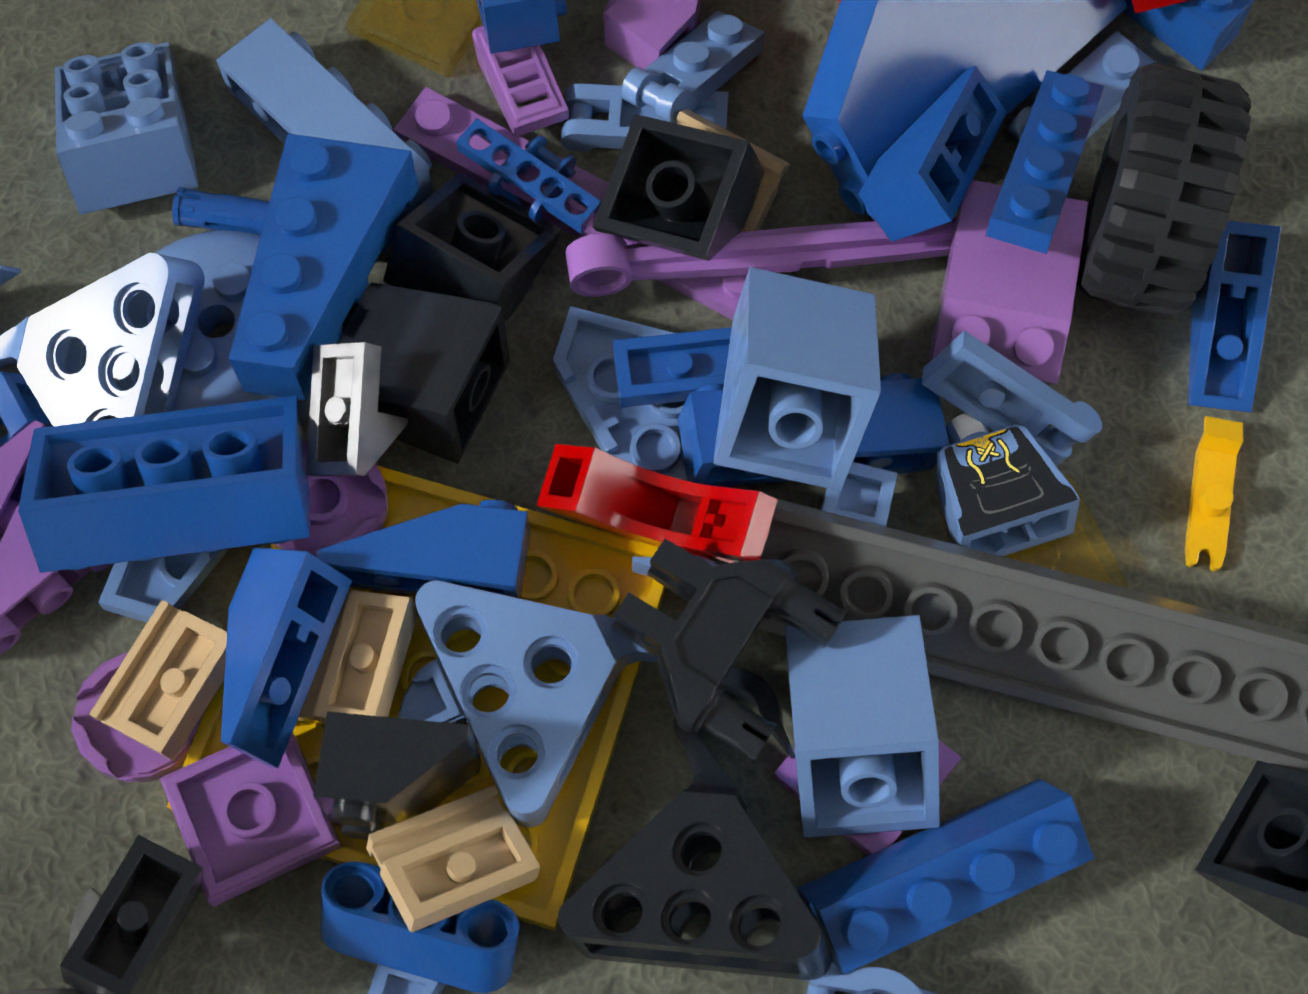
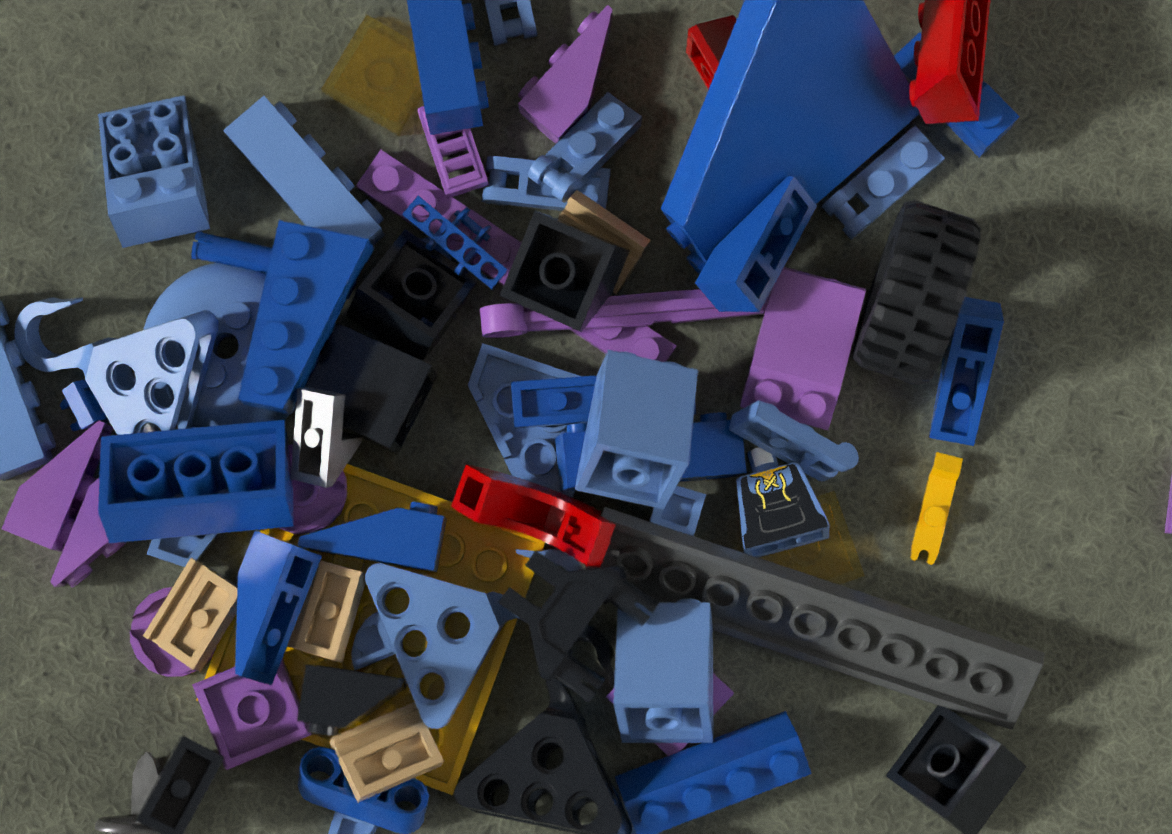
camera: 10 degrees right, 15 degrees up
(1045, 162) = (838, 254): blue plate -> none

